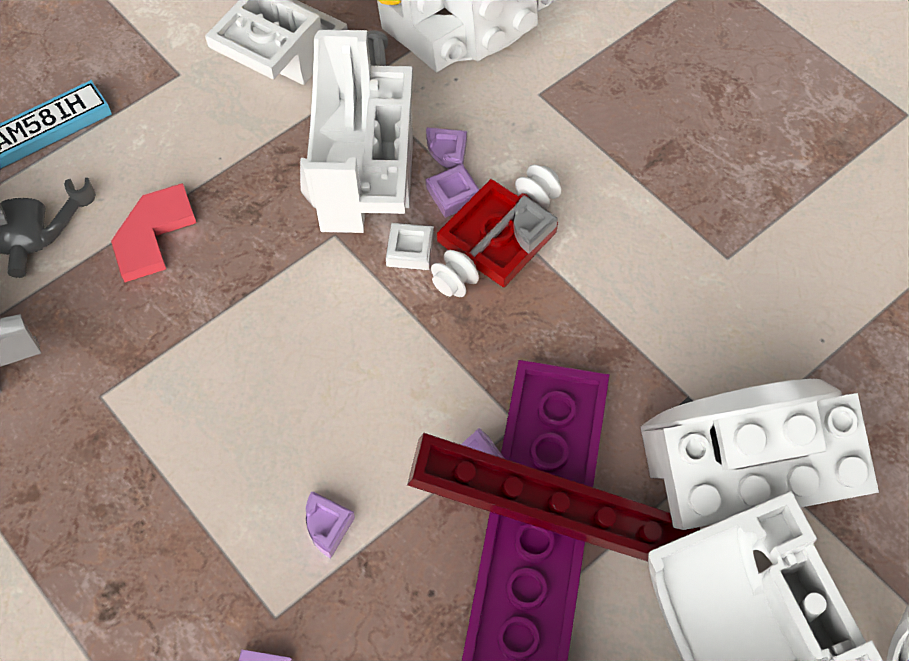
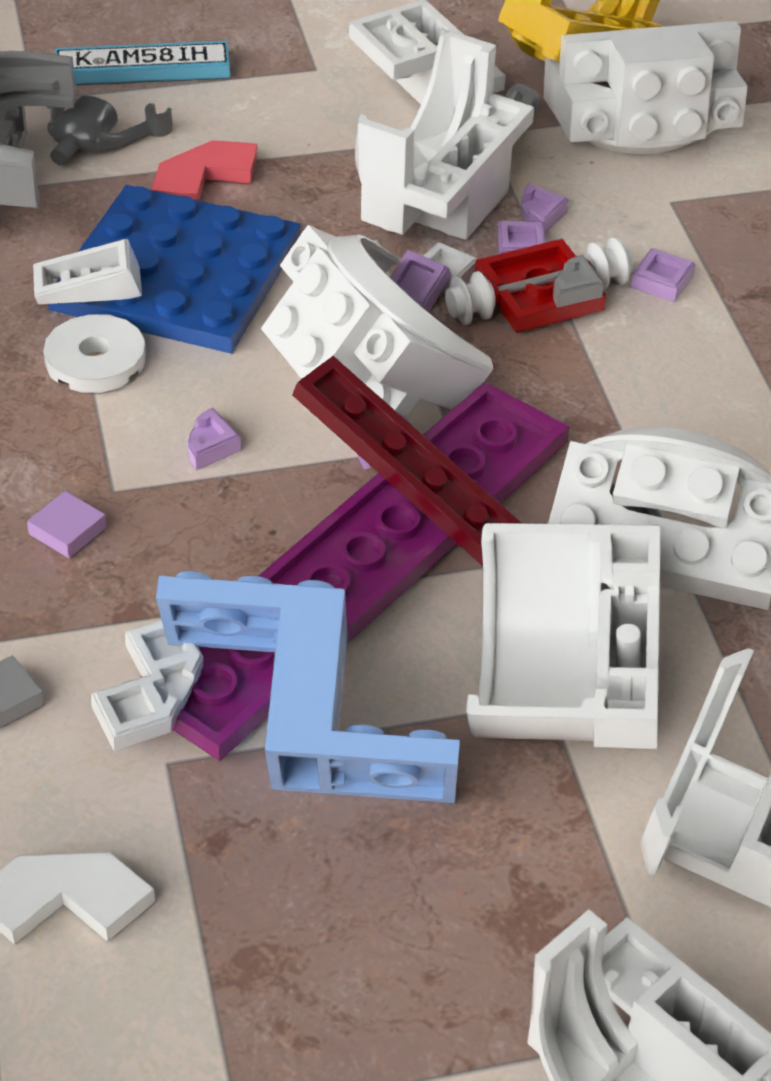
camera: 25 degrees right, 15 degrees down
(121, 396) = (99, 275): none -> white slope
(159, 457) = (71, 342): none -> white tile
(187, 349) = (197, 262): none -> blue plate
(396, 371) = (357, 313): none -> white piece
(400, 273) = (421, 278): none -> lavender tile
(579, 174) = (663, 274): none -> lavender tile

